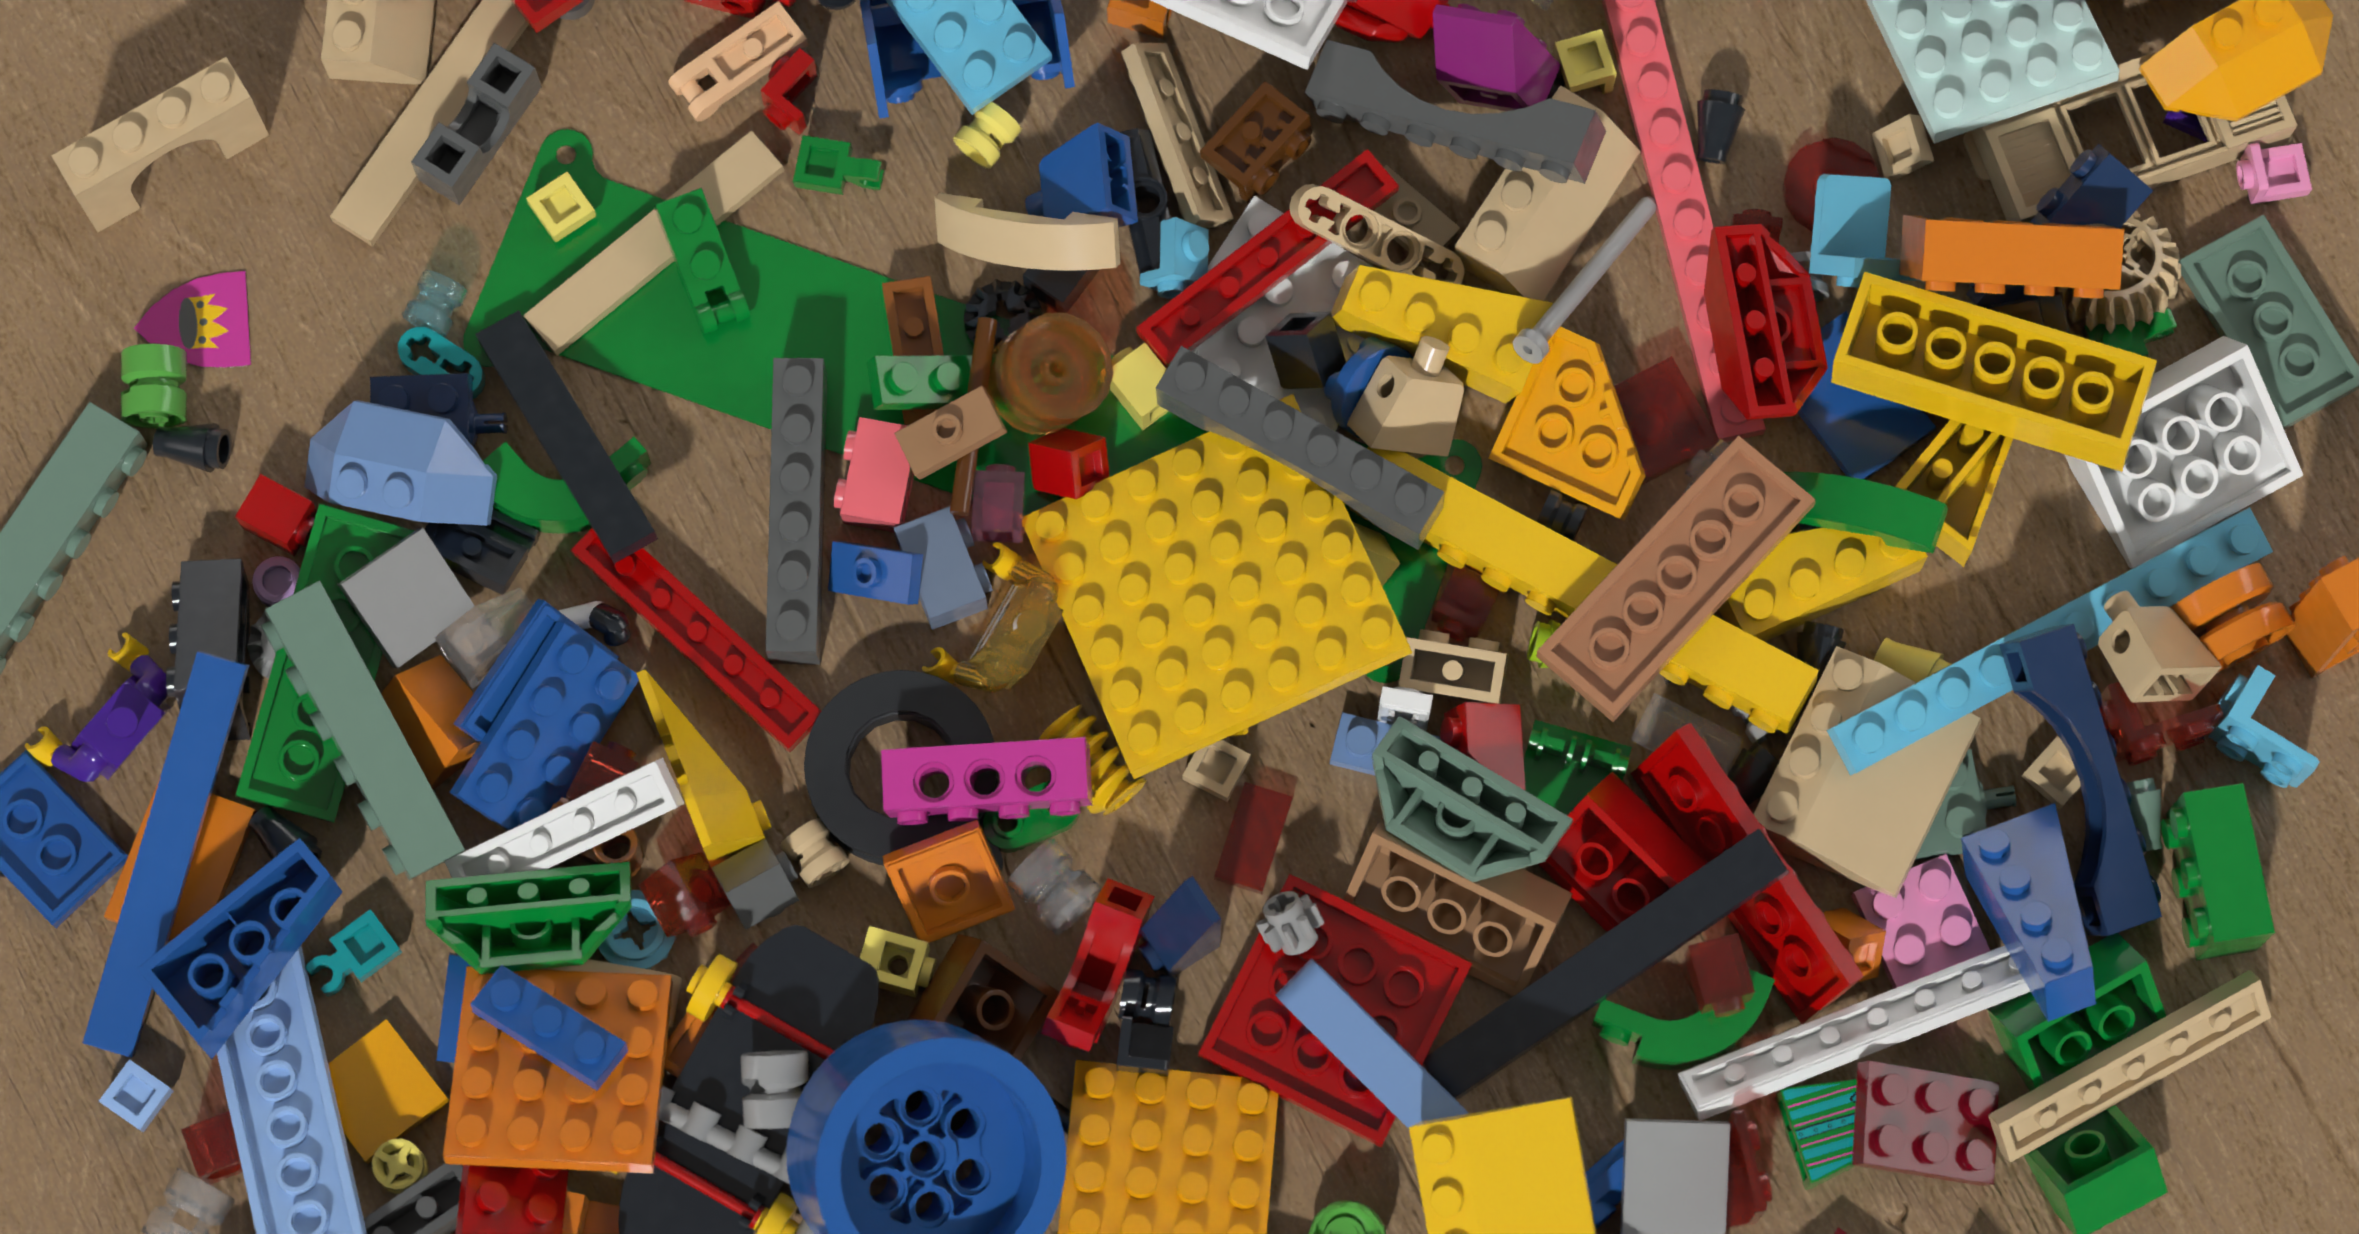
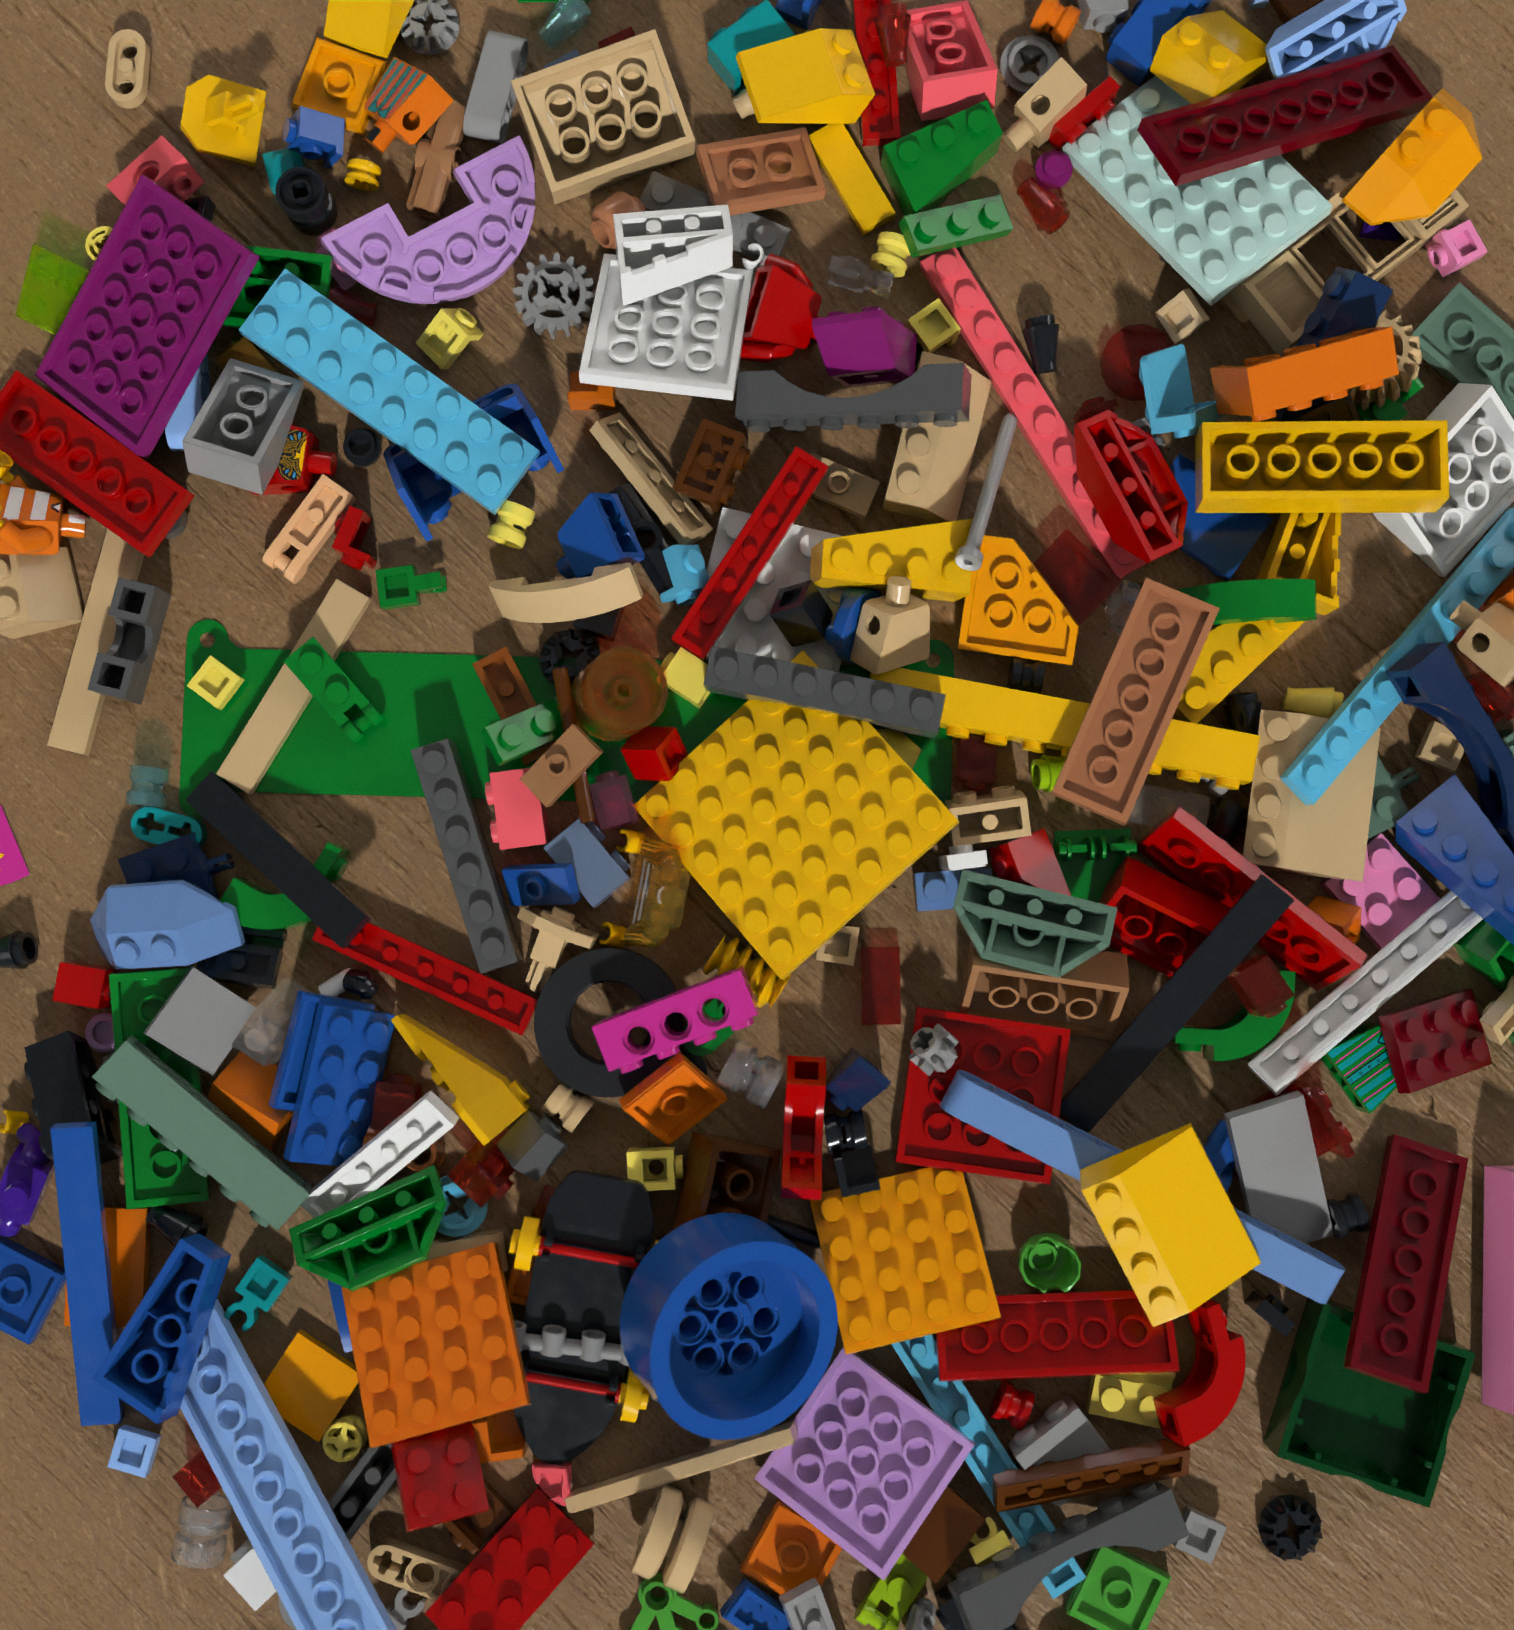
camera: 20 degrees left, 10 degrees up
(549, 1027) = (416, 1321): blue plate -> none
(773, 1085) = (599, 1301): light grey wheel -> none
(866, 643) = (554, 933): none -> tan piece
(1379, 234) = (826, 511): tan beam -> none

